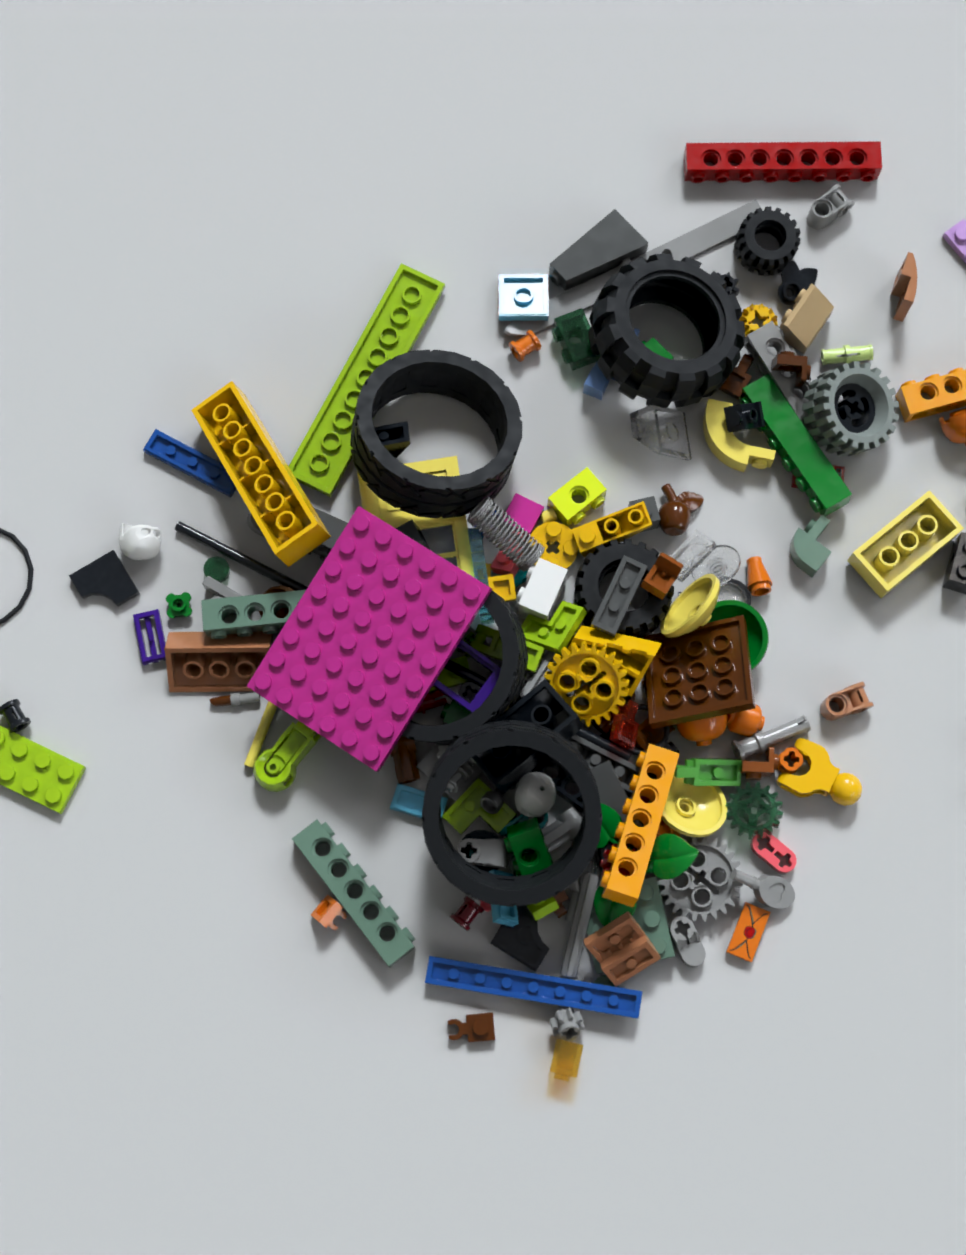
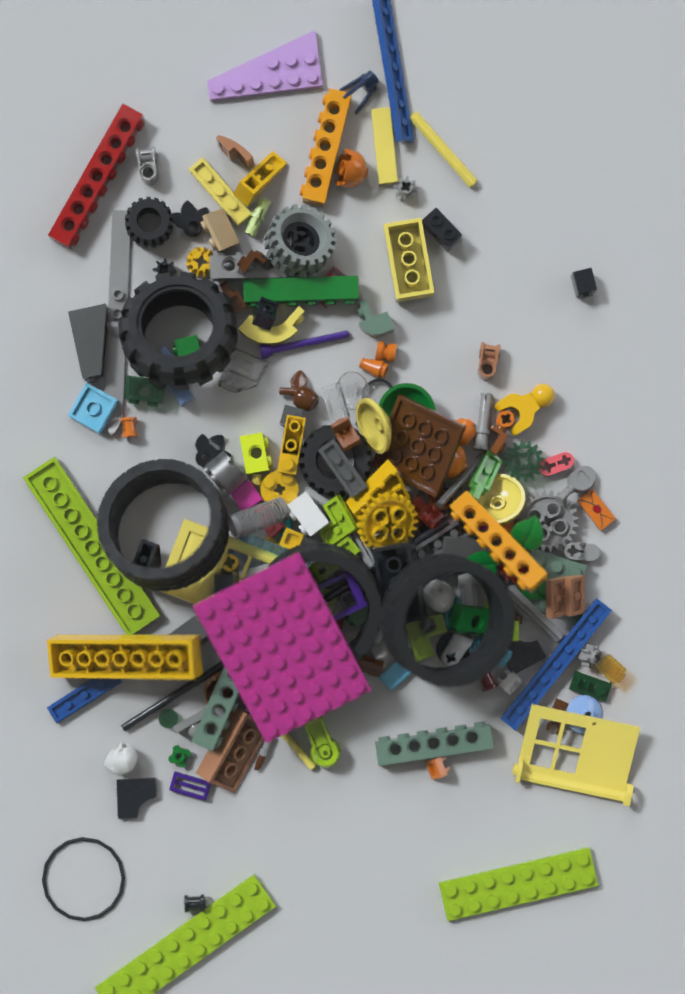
camera: 60 degrees left, 10 degrees up
(240, 1094) = (518, 883): none -> lime plate
(434, 545) = (235, 565): none -> yellow bush
(449, 1112) = (602, 759): none -> light yellow door
(479, 944) = (511, 683): none -> white tile
(489, 1045) = (582, 705): none -> light blue dish
(530, 1046) = (590, 686): none -> dark green plate
(534, 474) = (225, 473): none -> flat silver brick
(555, 448) = (210, 447): none -> black plate
(682, 744) = (459, 482): none -> dark grey bar
(703, 448) = (268, 350): none -> dark purple piece
(783, 579) = (386, 351): none -> orange wheel
(848, 301) = (220, 192): none -> light yellow tile
(890, 331) = (259, 178): none -> yellow slope

